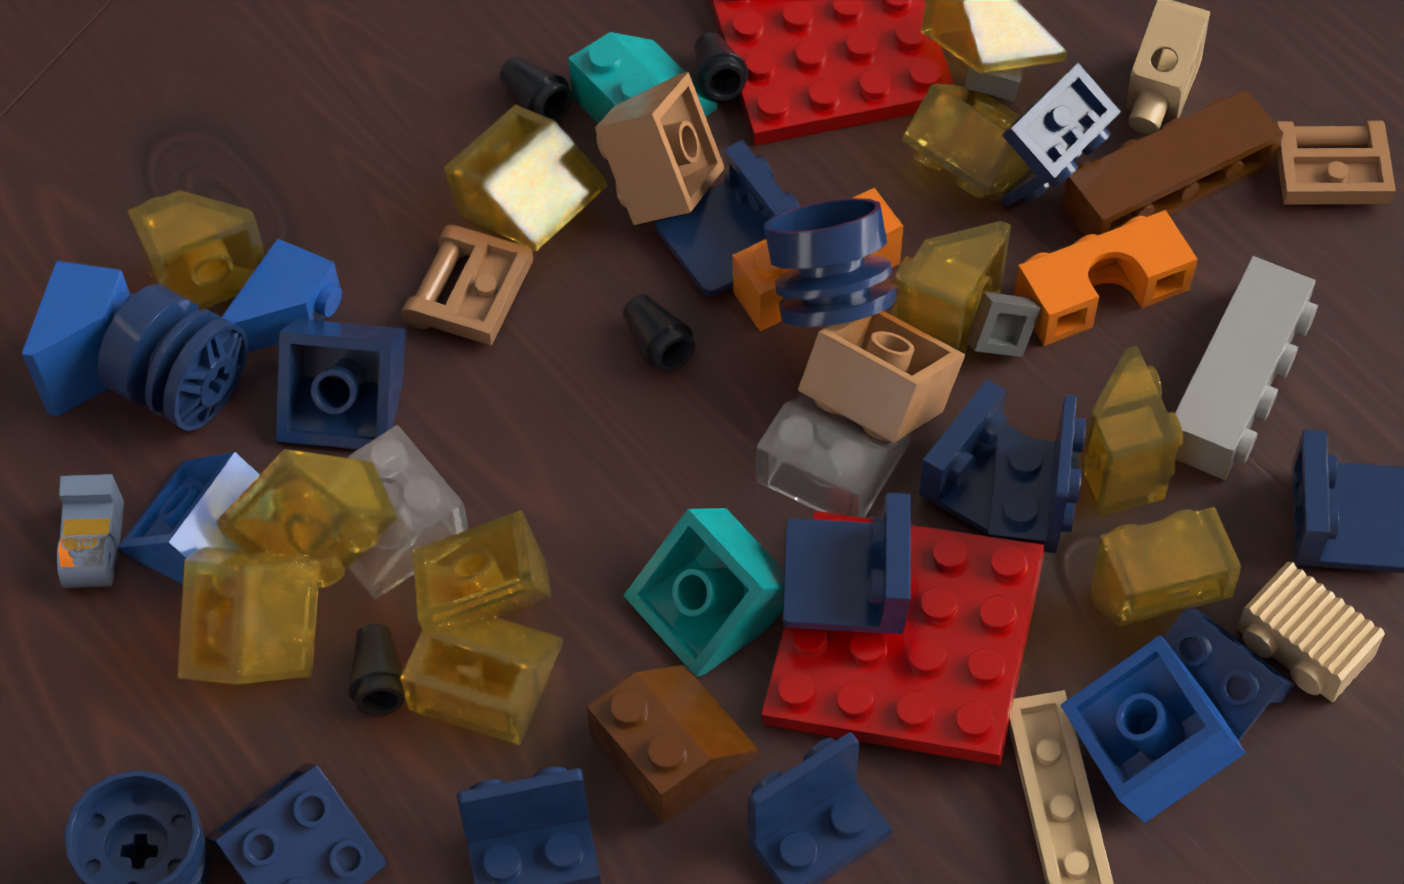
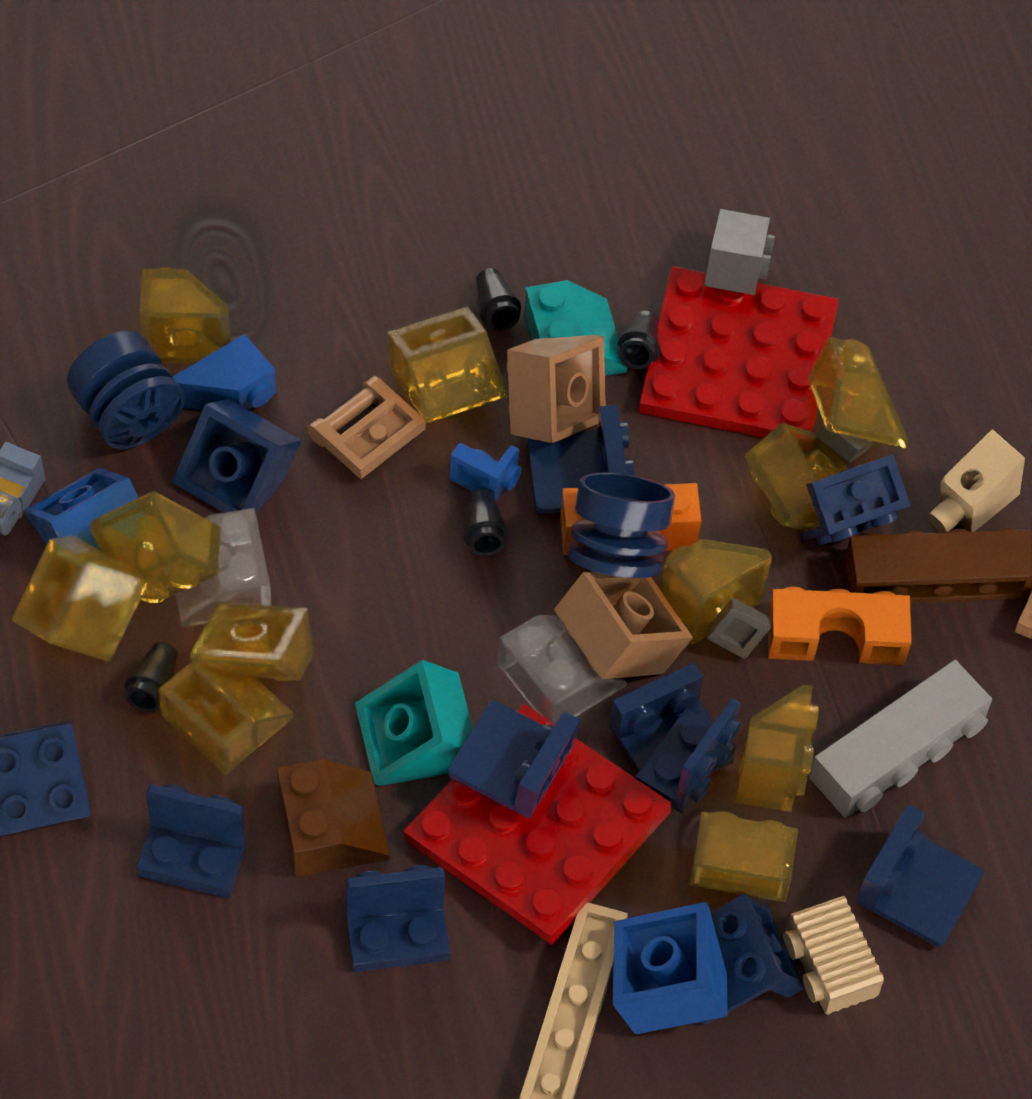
camera: 20 degrees right, 0 degrees up
(70, 332) = (60, 338): blue slope -> none
(619, 278) = (478, 470): none -> blue bracket

